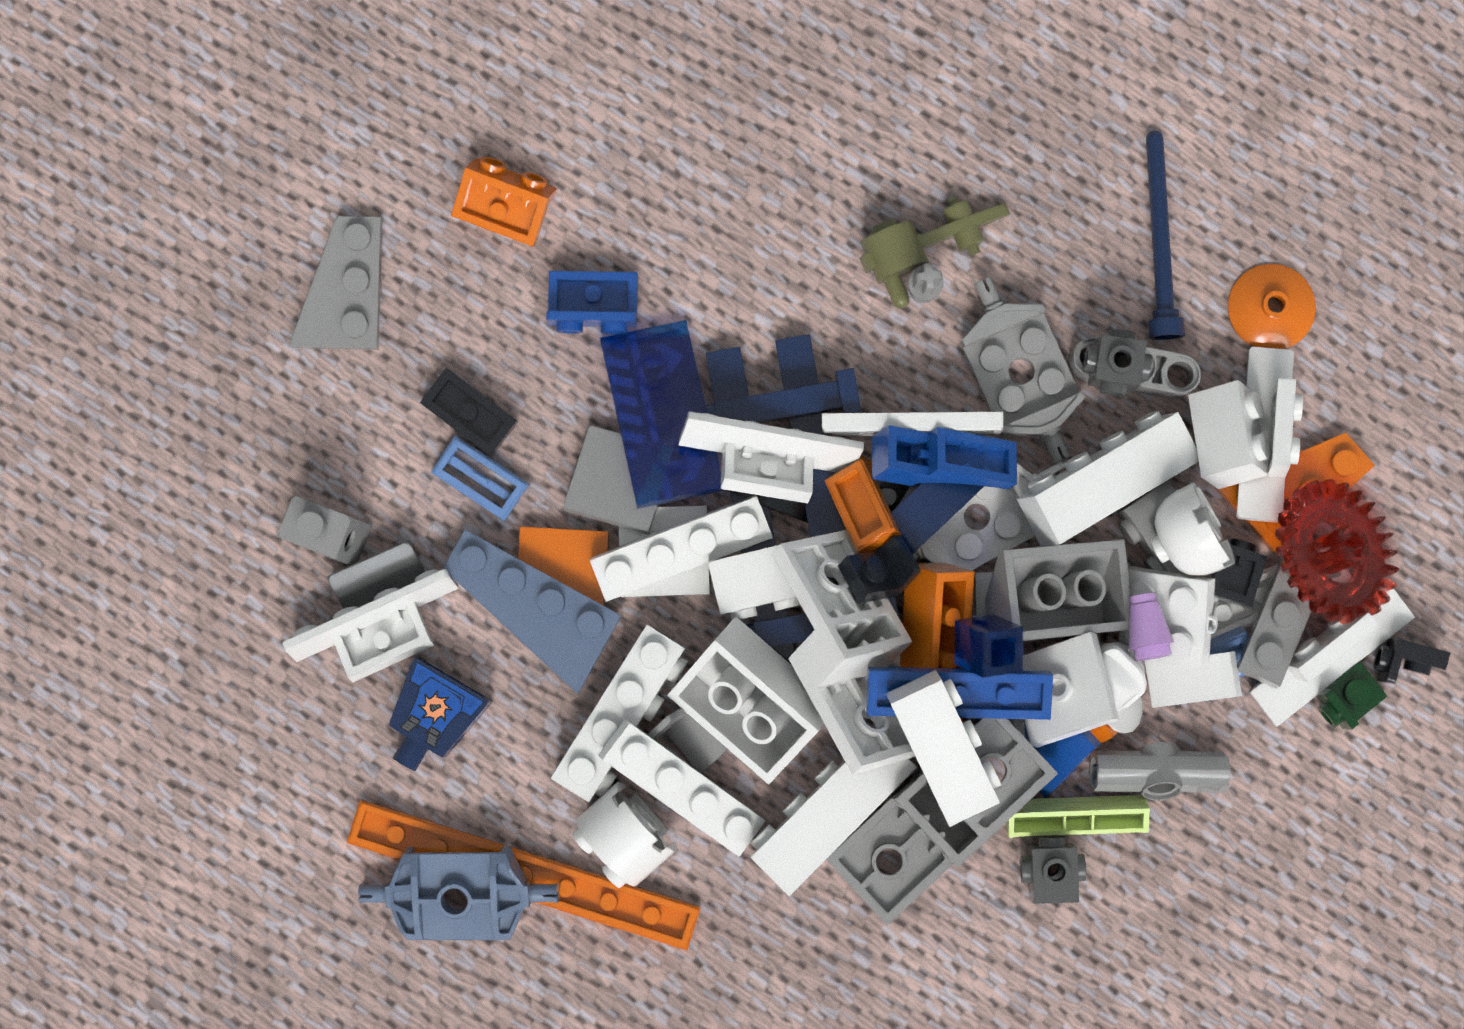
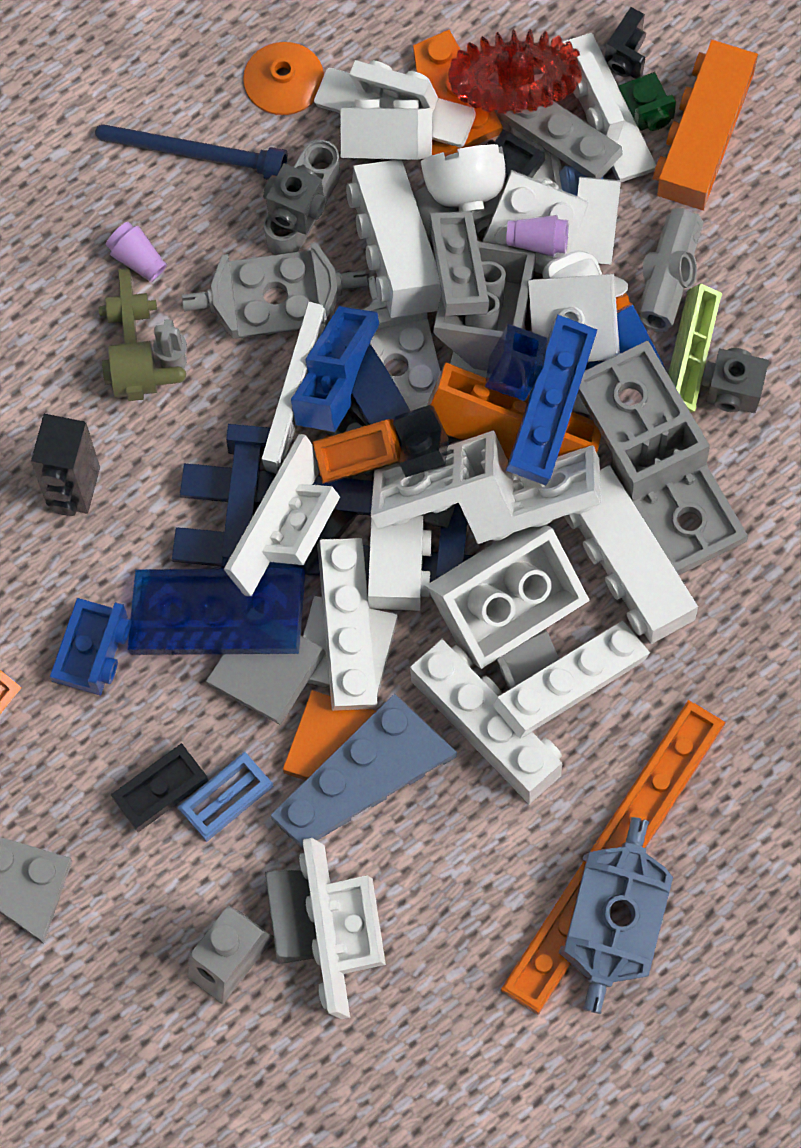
camera: 70 degrees left, 15 degrees down
(433, 713) = (436, 893): torso -> none
(623, 836) = (602, 741): white brick -> none
(758, 218) = (65, 464): none -> black brick
(945, 747) = (597, 418): white brick -> none
(1026, 215) = (135, 251): none -> lavender cone
(1086, 555) = (458, 263): none -> light grey plate
(1340, 767) = (706, 125): none -> orange brick

